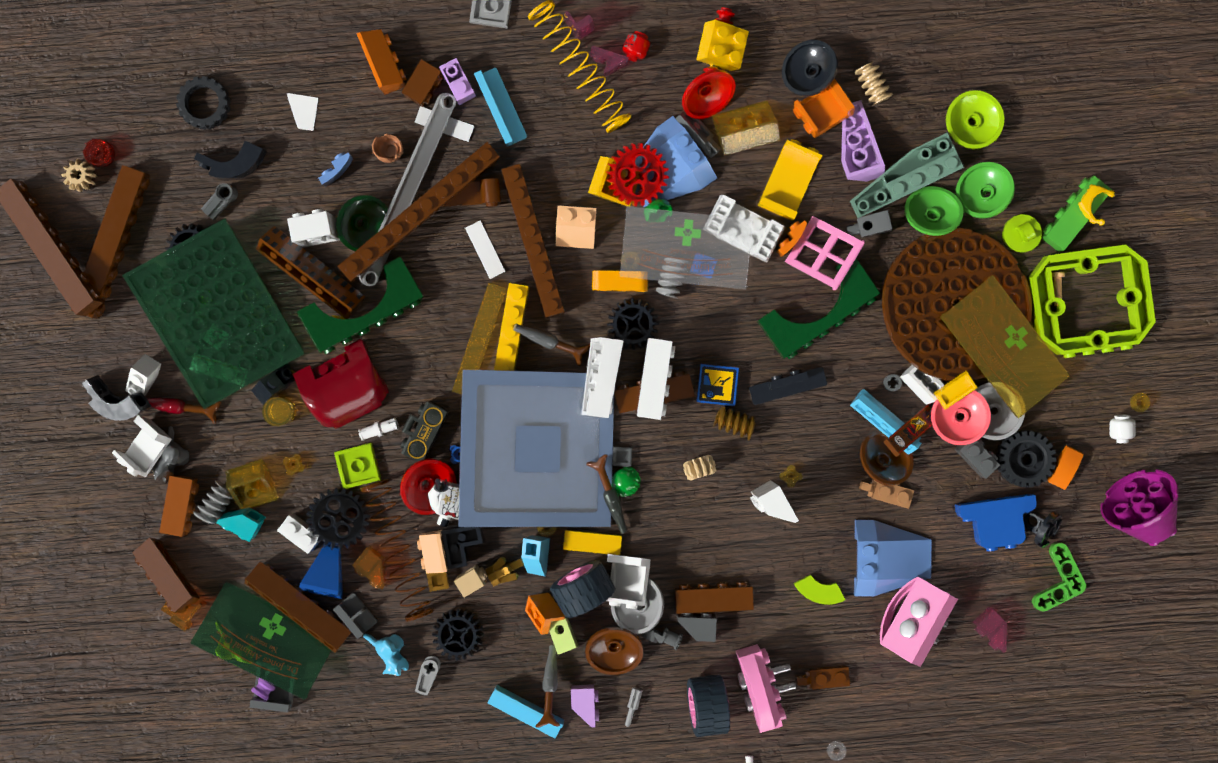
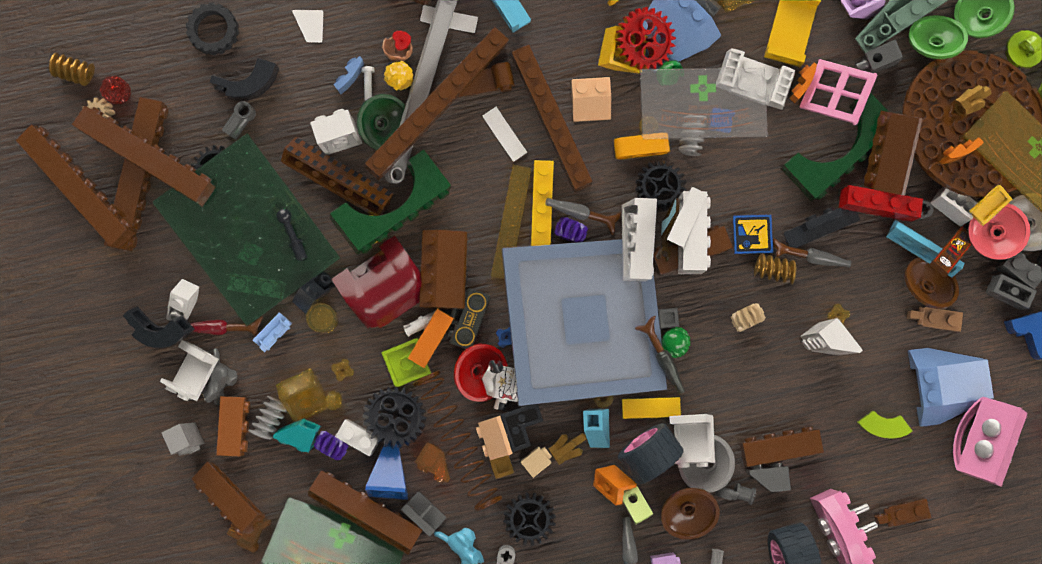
camera: 10 degrees left, 5 degrees down
(56, 127) = (71, 70): none -> pearl gold piece
(118, 228) = (143, 155): none -> reddish brown brick
(128, 513) = (183, 439): none -> light grey brick
(227, 418) = (272, 332): none -> light blue hinge
(252, 306) = (284, 217): none -> black pin
(271, 538) = (330, 445): none -> dark purple gear
(280, 493) = (333, 400): none -> clear yellow plate
(354, 178) = (367, 70): none -> white piece
(383, 446) = (431, 338): none -> orange tile
(385, 177) = (398, 75): none -> yellow piece
(393, 141) = (402, 40): none -> red piece
(404, 380) = (443, 269): none -> reddish brown slope
(536, 357) = (571, 230): none -> dark purple gear
(633, 372) = (667, 225): none -> dark brown flag
(648, 364) = (687, 216): none -> white sticker
(774, 414) = (812, 255): none -> dark grey piece
(849, 371) = (880, 203): none -> red brick
(866, 323) = (892, 152): none -> reddish brown slope
(932, 333) = (955, 153): none -> orange slope
(954, 282) = (971, 100): none -> pearl gold rock
(963, 477) = (1010, 292): none -> dark grey brick

